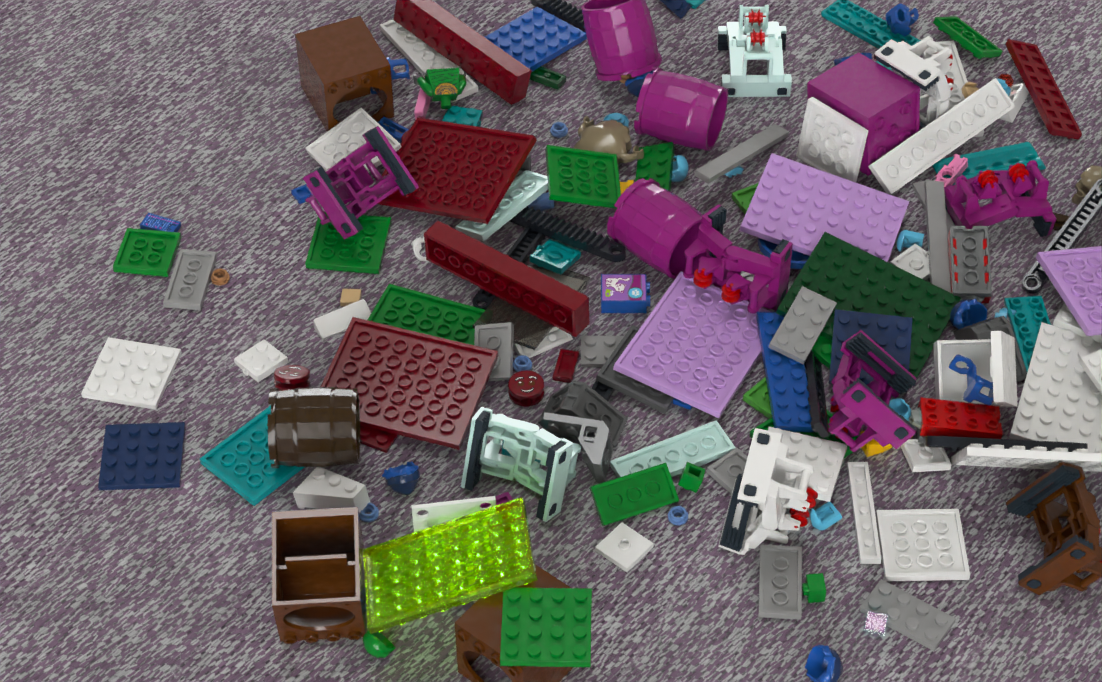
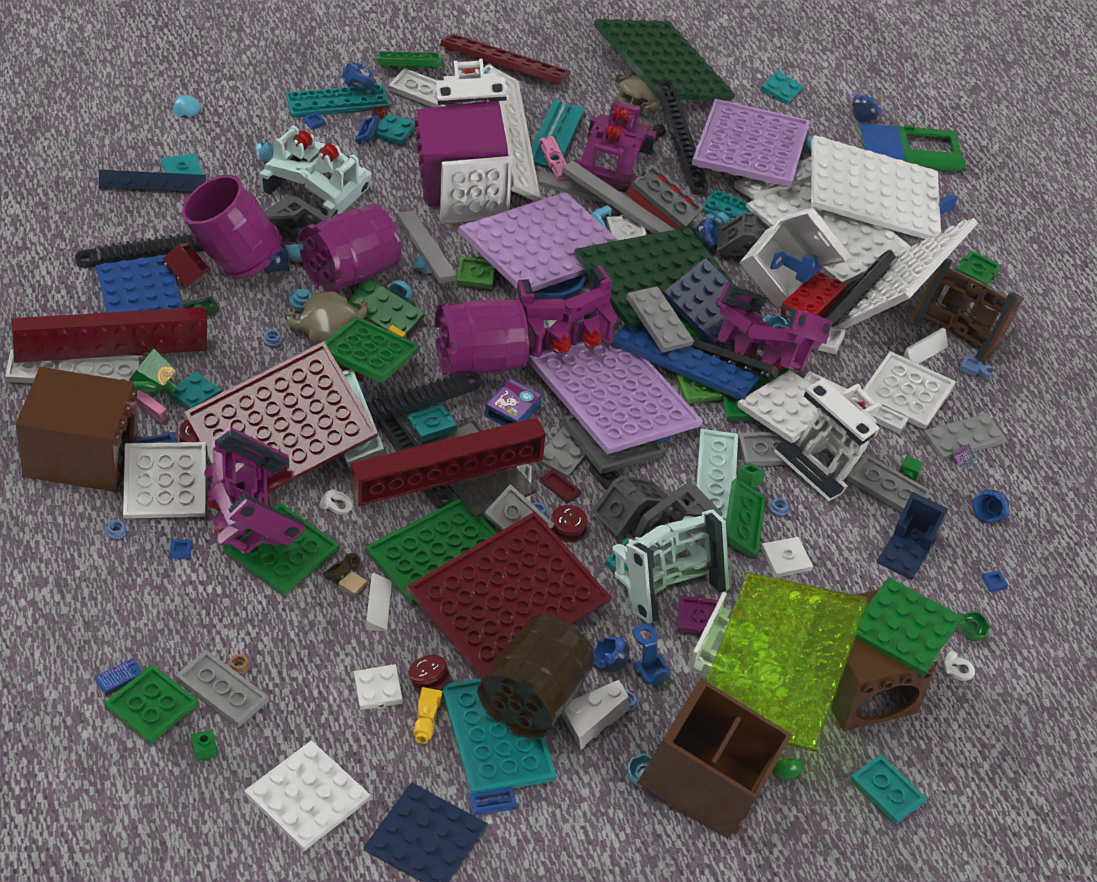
camera: 65 degrees left, 0 degrees up
(131, 296) = (204, 745): none -> green plate
(214, 487) = (483, 807): none -> blue tile
(254, 398) = (426, 714): none -> yellow piece
(290, 152) = (116, 525): none -> medium blue plate
(353, 283) = (339, 569): none -> dark brown plate
(417, 497) = (650, 661): none -> blue piece
(575, 45) = (186, 264): none -> dark red slope
(685, 61) = (292, 213): none -> dark grey bracket
(725, 628) = (913, 536): none -> dark blue bracket
(830, 28) = (314, 120): none -> blue tile
(995, 534) = (927, 347): none -> white slope
(1008, 582) = (974, 366): none -> medium blue plate

